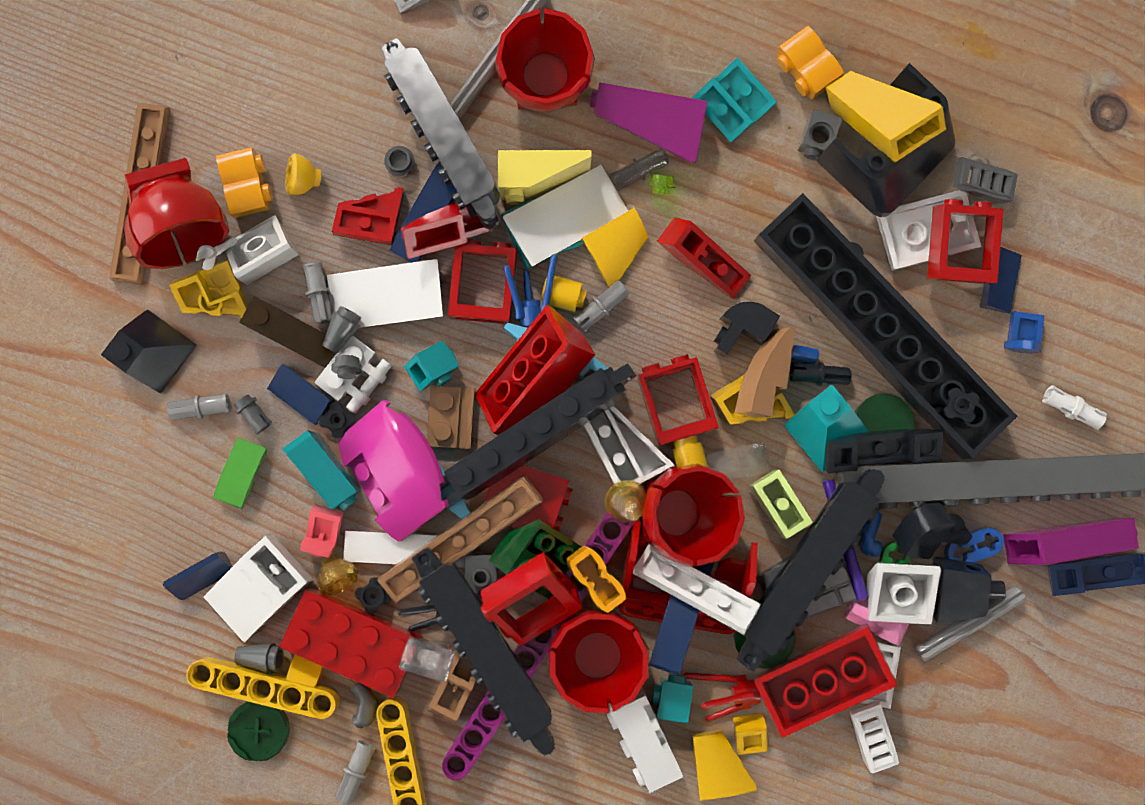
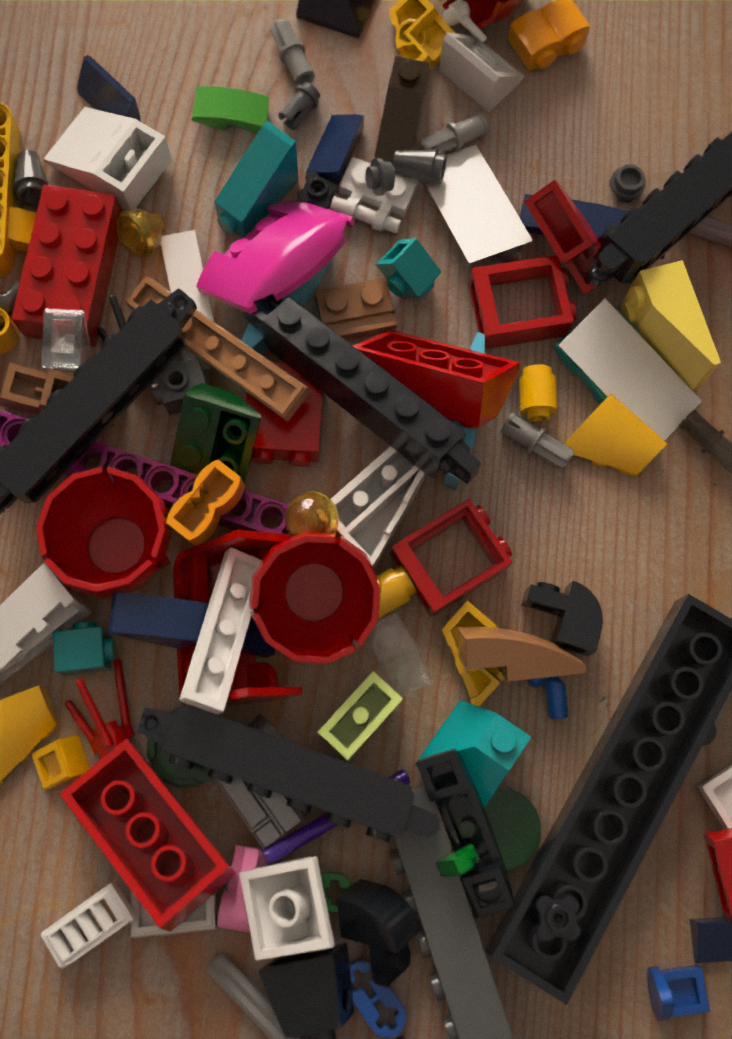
camera: 75 degrees right, 10 degrees down
(301, 175) = (576, 86): yellow brick -> none
(322, 532) = (187, 206): coral bracket -> none
(364, 595) = (123, 270): black plate -> none
(369, 218) = (551, 159): red wing -> none
(520, 583) = (191, 446): red window -> none
(530, 308) = (501, 350): blue plant -> none
(661, 183) = (705, 471): clear neon green plate -> none
(703, 256) = (635, 545): red slope -> none
(820, 373) = (538, 728): black axle -> none
(868, 542) = (353, 846): blue arm -> none
(904, 462) = (458, 861): none -> green tile

